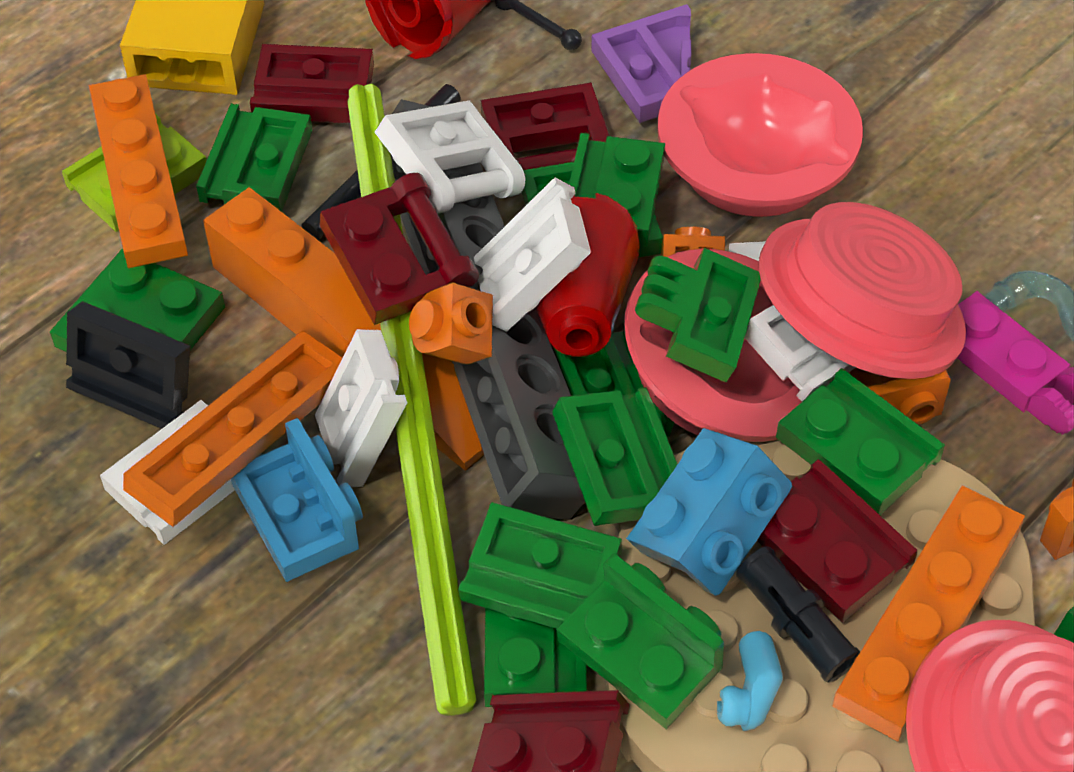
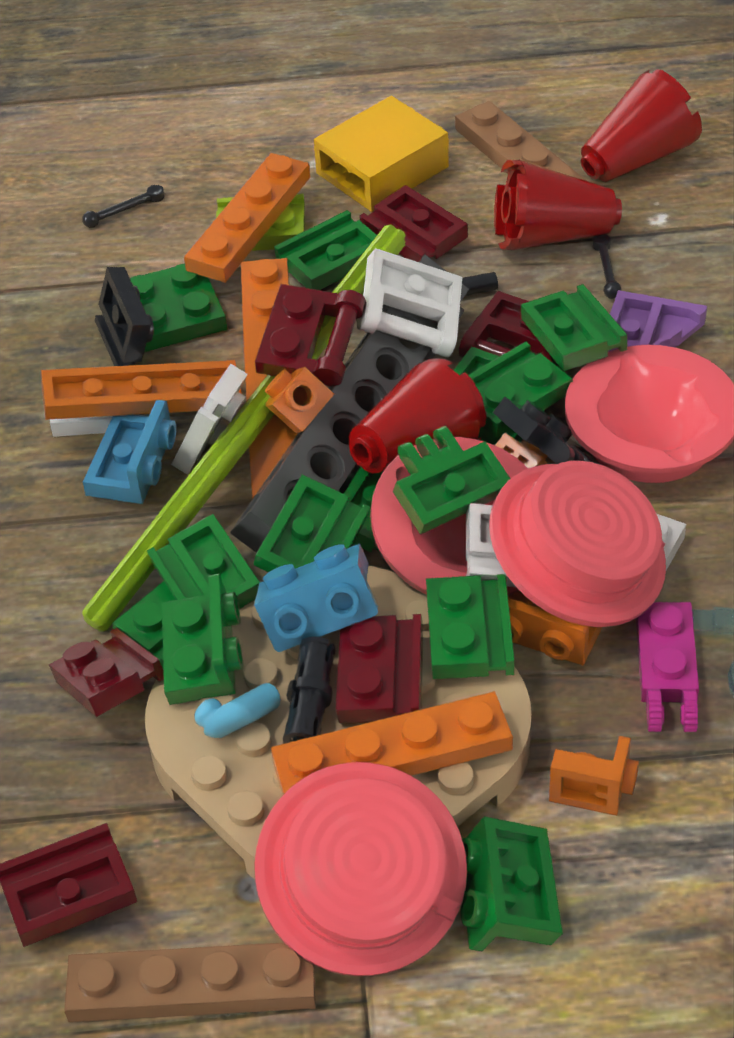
camera: 45 degrees right, 5 degrees down
(532, 253) = (376, 381): white plate -> none
(611, 92) = (573, 327): none -> green plate
(695, 208) = (541, 430): none -> black hinge

